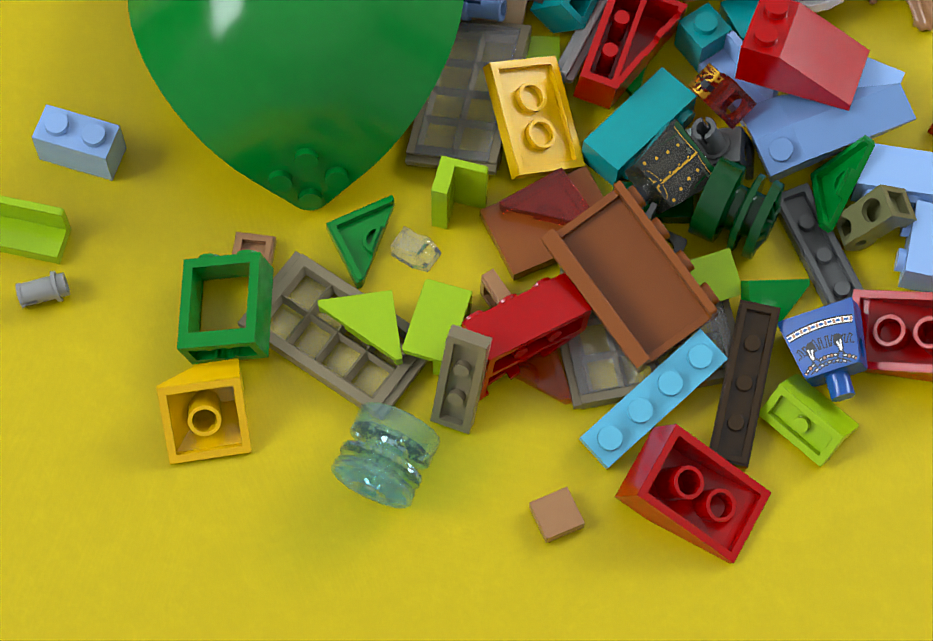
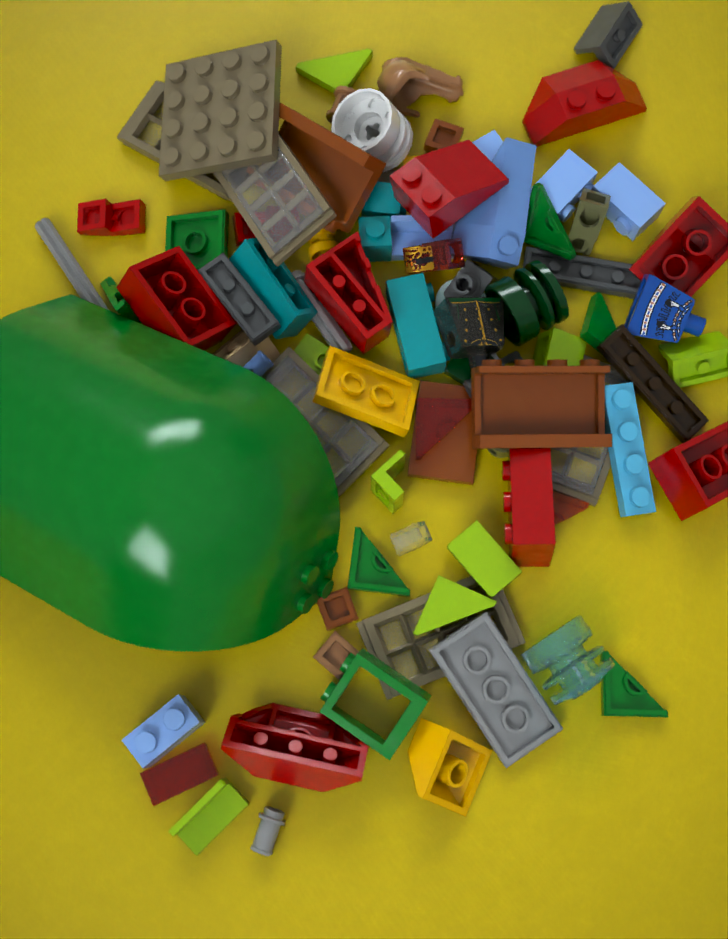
camera: 55 degrees left, 10 degrees up
(48, 183) = (179, 774): none -> clear red tile
(133, 257) = (295, 747): none -> red wedge
(298, 228) = (337, 609): none -> dark orange tile
(313, 413) = (495, 689): none -> light grey tile
(392, 546) = (625, 695): none -> green tile
(460, 378) = (548, 570): dark tan plate -> none
(492, 288) = (483, 504): medium nougat tile -> none
(556, 514) = (667, 567): medium nougat tile -> none
(867, 33) = (442, 135): none -> dark orange plate

